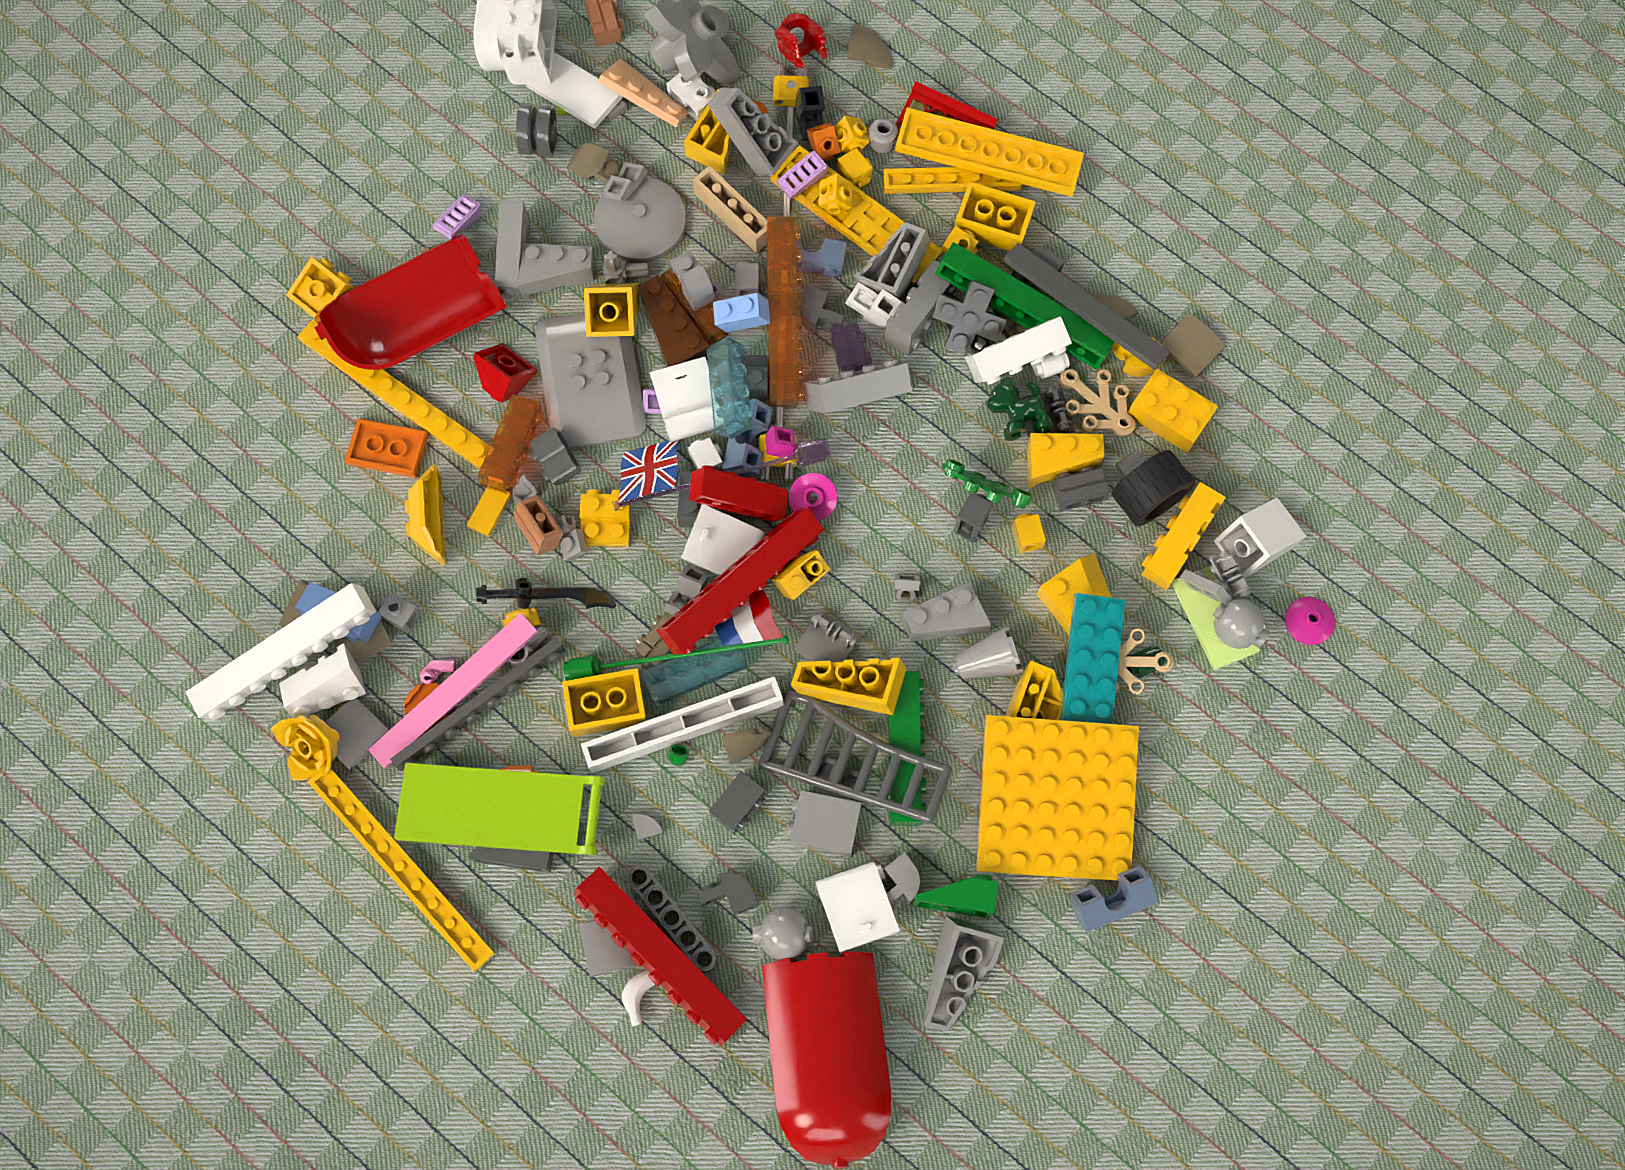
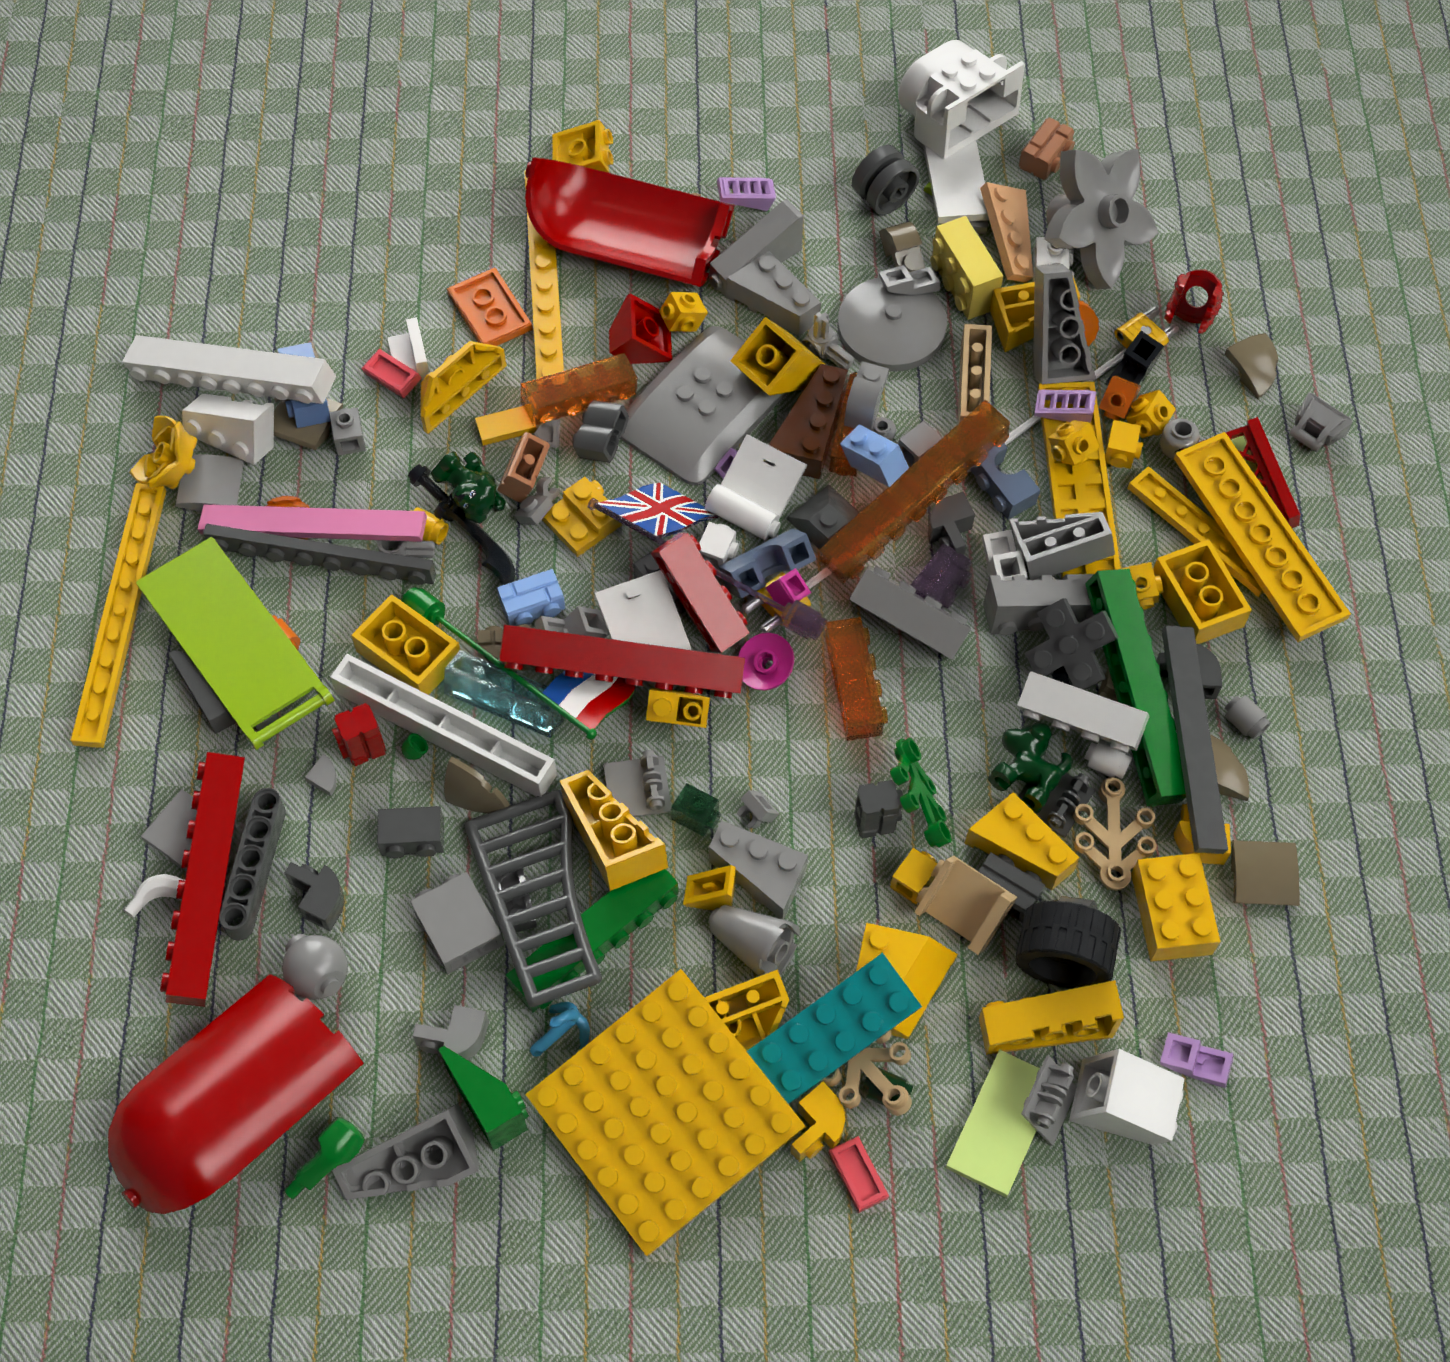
camera: 50 degrees right, 10 degrees down
(373, 526) = (409, 348): none -> white panel
(378, 549) = (391, 373): none -> coral tile
(435, 668) = (321, 498): bright pink arm -> none
(513, 332) = (683, 311): none -> yellow brick
(523, 566) = (471, 484): none -> dark green animal
(637, 598) = (531, 598): none -> light blue brick
(644, 782) = (358, 735): none -> red brick
(648, 142) = (965, 267): none -> light yellow brick
(729, 388) = (796, 506): clear light blue brick -> none
(857, 906) = (396, 1010): white door -> none
(871, 456) = (854, 678): none -> clear orange brick
(876, 621) = (695, 810): none -> clear green brick
(917, 1009) = (338, 1146): none -> green animal
(936, 655) = (711, 888): none -> yellow slope
(942, 50) = (1320, 421): none -> light grey piece
(949, 816) = (560, 1024): none -> dark azure piece
(1075, 519) = (965, 902): none -> tan panel
(1091, 266) = (1247, 717): none -> light grey brick
(1132, 895) = (584, 1243): sand blue arch -> none
(1136, 711) = (827, 1121): none -> yellow brick
(1179, 721) = (858, 1174): none -> coral tile
(1200, 583) = (1016, 1078): light grey plate -> none
(1240, 624) = (1008, 1143): light grey brick -> none
(1266, 481) = (1196, 1061): none -> lavender slope
(1302, 628) = (1083, 1238): dark pink dish -> none

